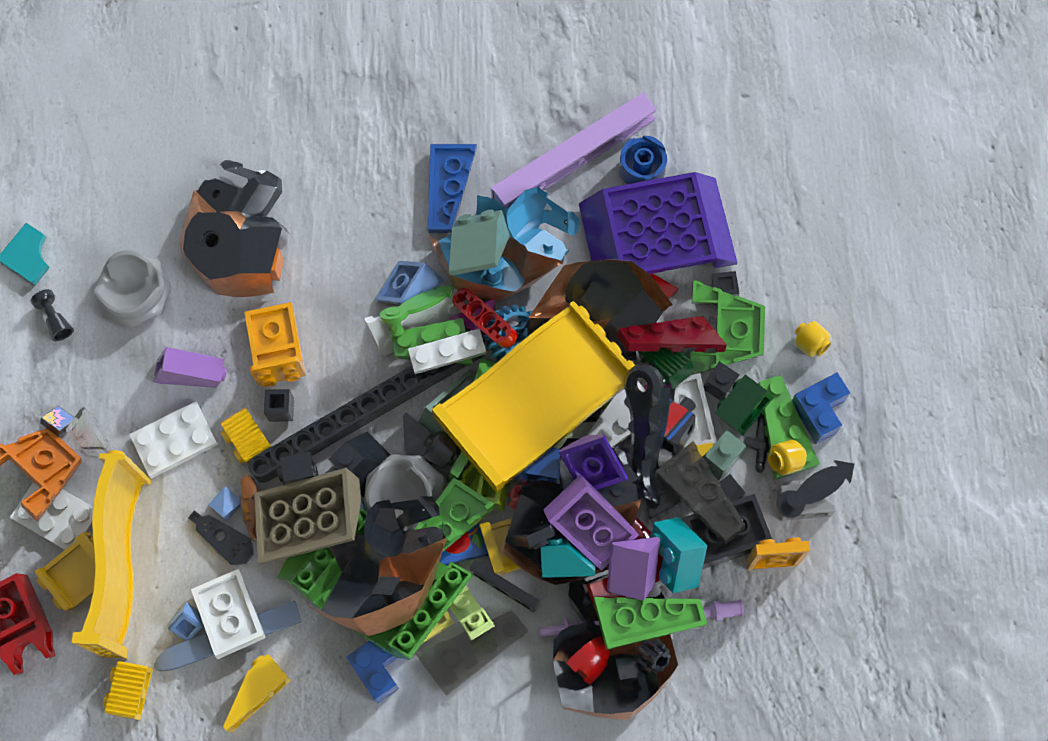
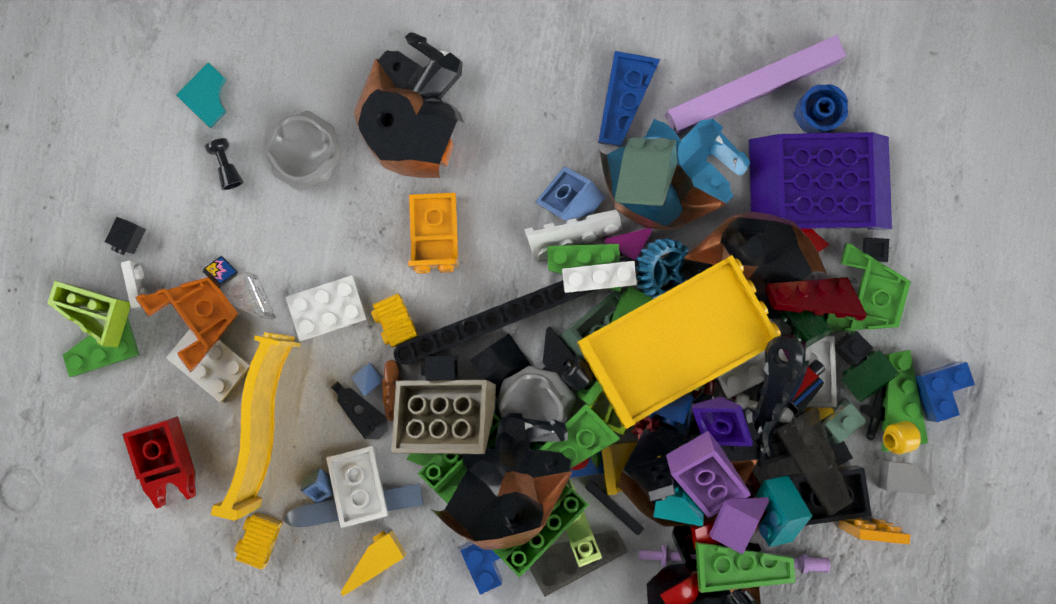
camera: 10 degrees right, 15 degrees up
(70, 574) = (216, 424): yellow panel -> none
(189, 369) = (349, 244): medium lavender slope -> none
(278, 405) = (430, 296): black brick -> none
(418, 303) = (576, 223): bright green brick -> none
(484, 317) = (640, 251): red beam -> none
(812, 339) = (948, 320): yellow head -> none
(814, 489) = (920, 471): black brick -> none

